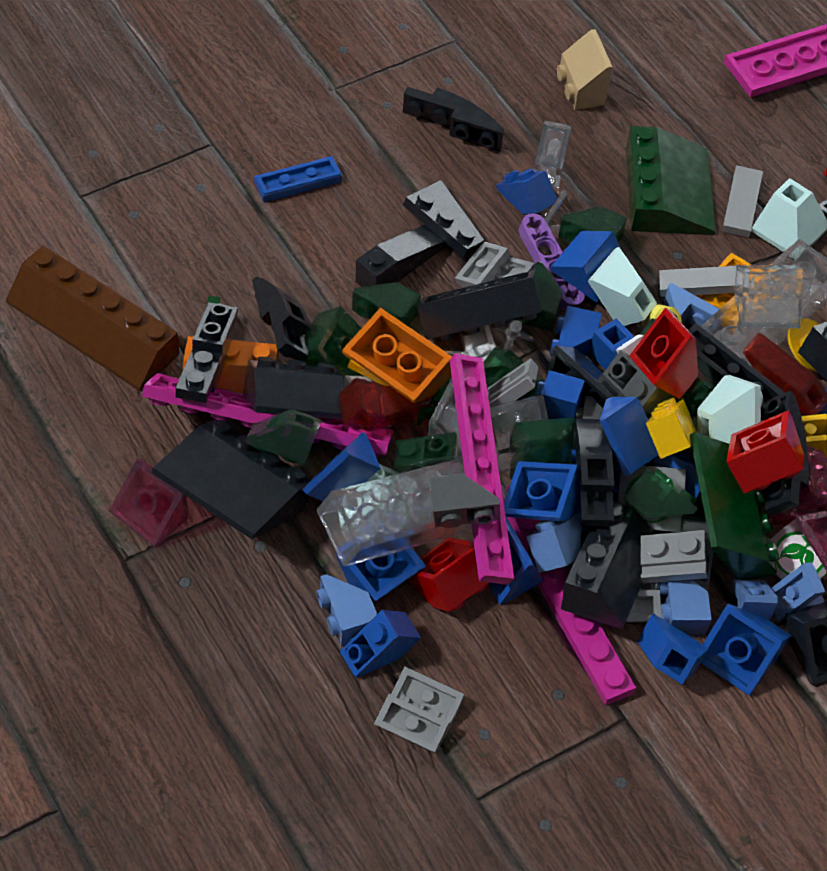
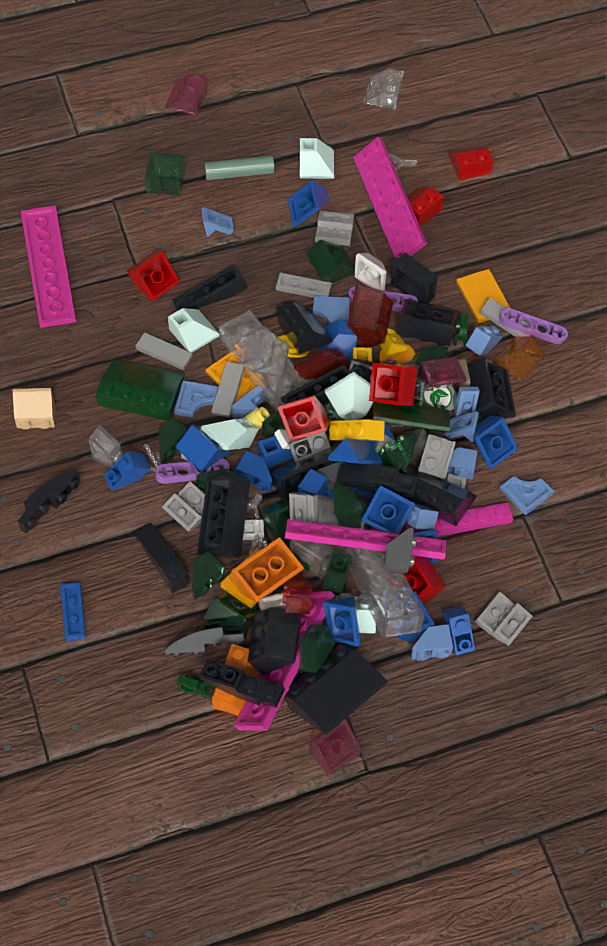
camera: 75 degrees left, 5 degrees up
(93, 318) = (171, 764): reddish brown slope -> none
(444, 217) = (137, 525): wing -> none
(664, 719) = (526, 494): none -> medium blue tile
(671, 649) = (490, 477): blue slope -> none
(676, 246) = (193, 397): none -> medium blue tile

